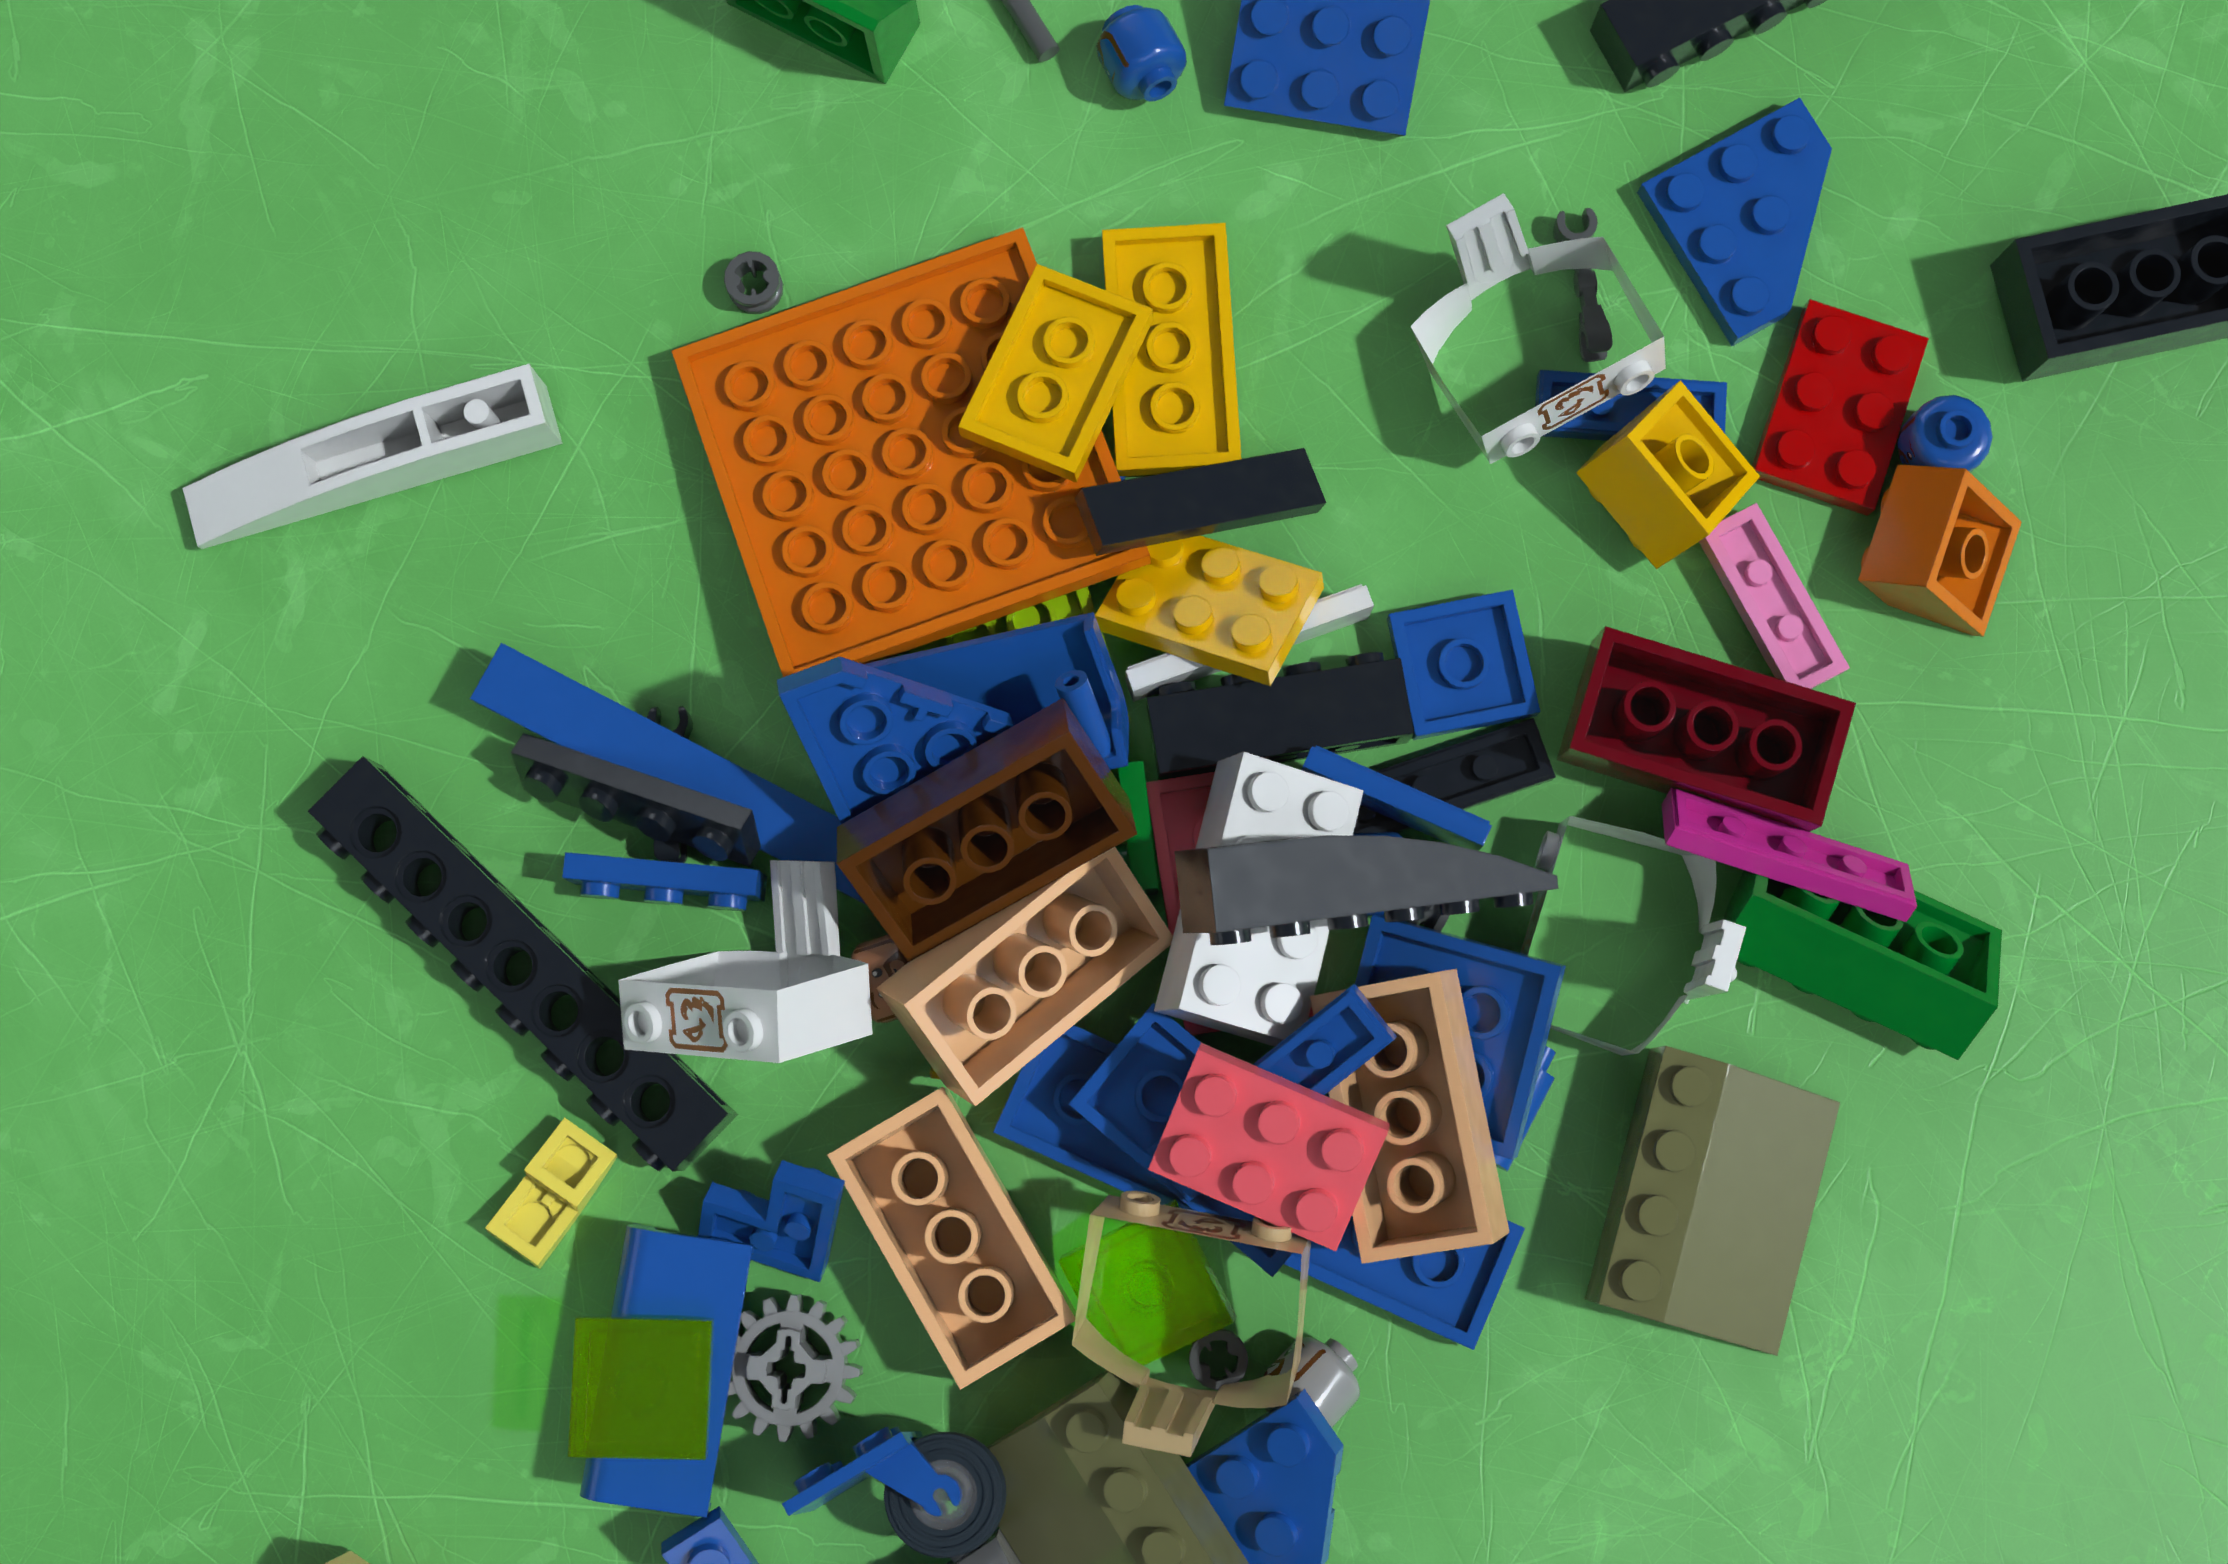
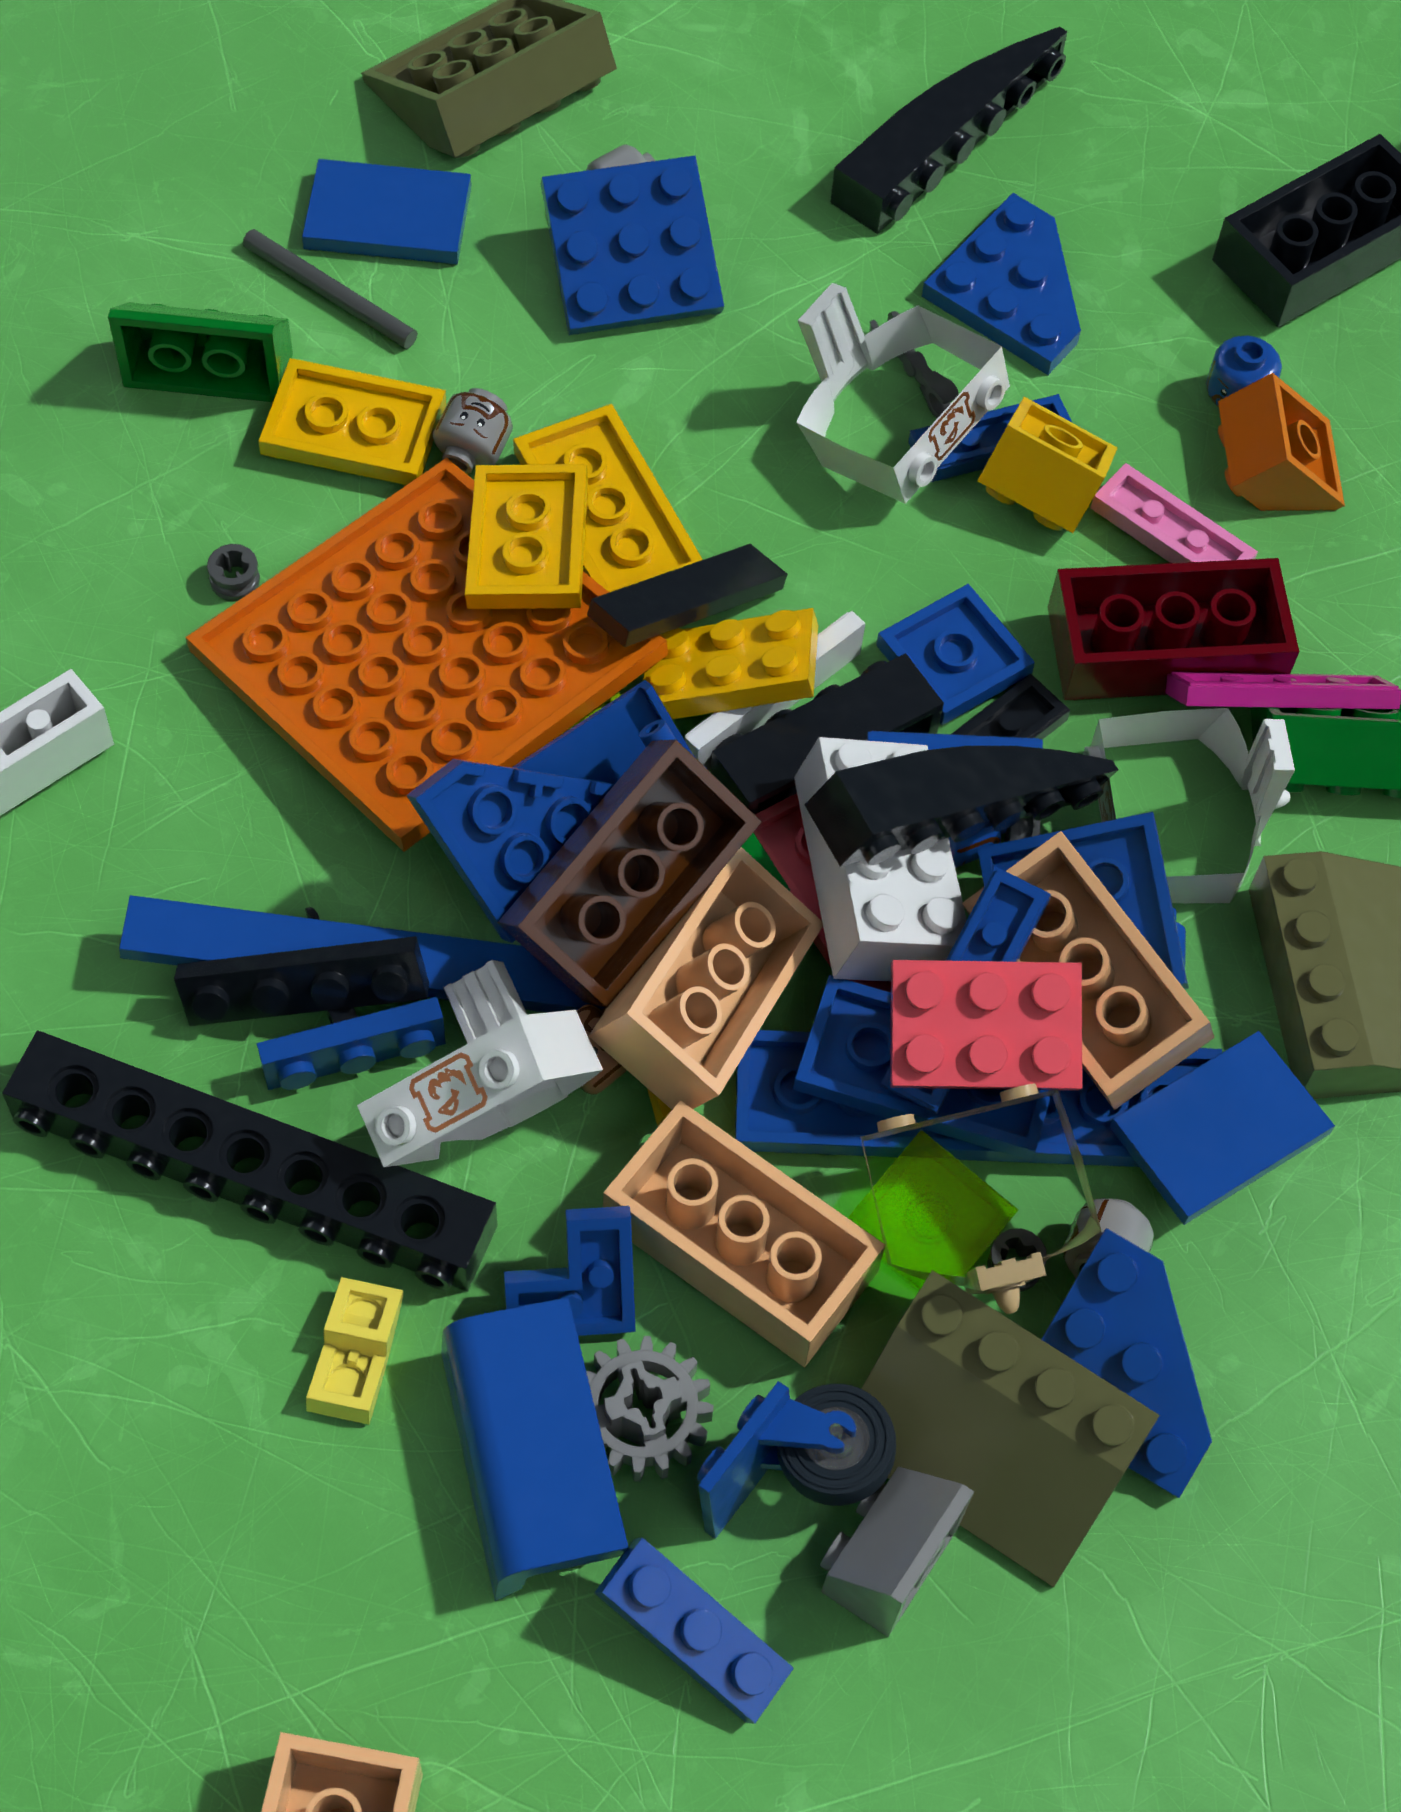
camera: 30 degrees left, 20 degrees down
(641, 1388) = (521, 1448): clear neon green tile -> none
(944, 143) = (352, 422): none -> yellow plate
(1063, 203) = (473, 429): none -> light grey head
(1140, 53) = (488, 310): blue head -> none
(1480, 1317) = (1221, 1127): none -> blue tile
(1839, 407) = (1152, 387): red plate -> none

